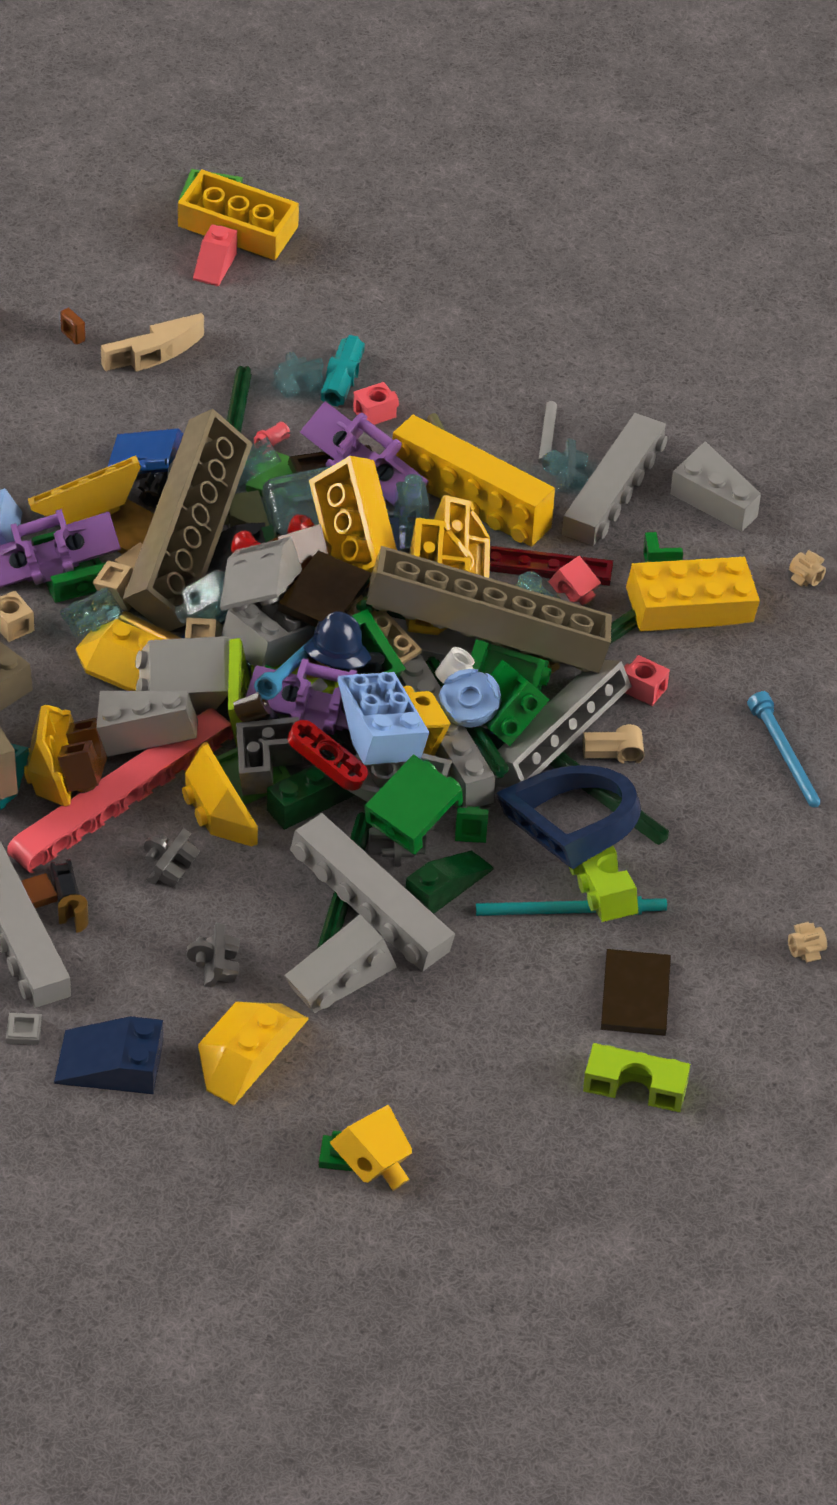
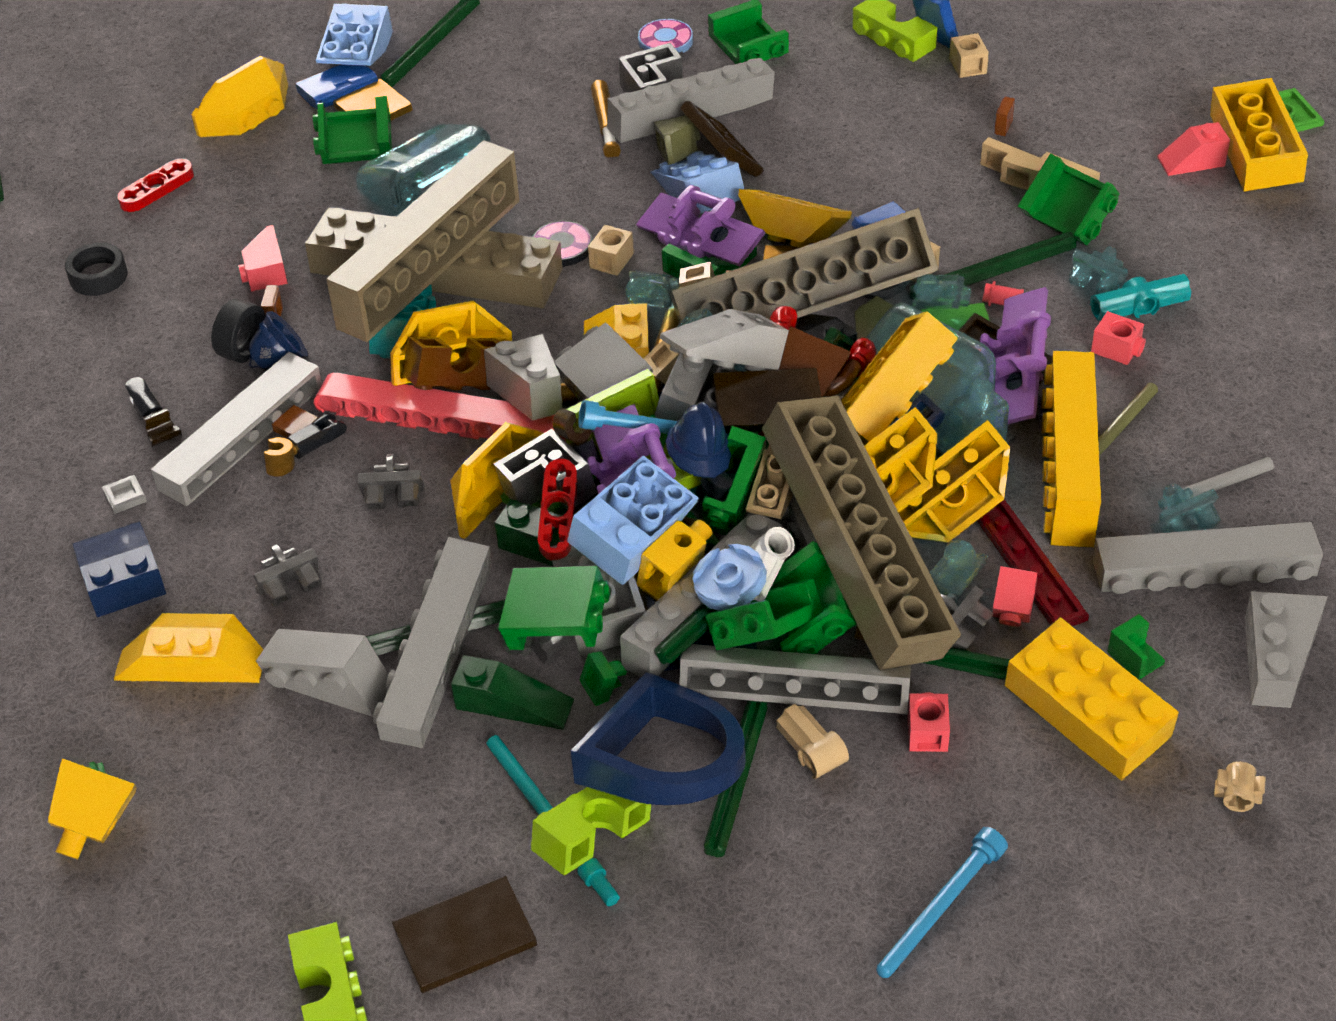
camera: 65 degrees right, 0 degrees up
(217, 345) = (1069, 200): none -> green panel

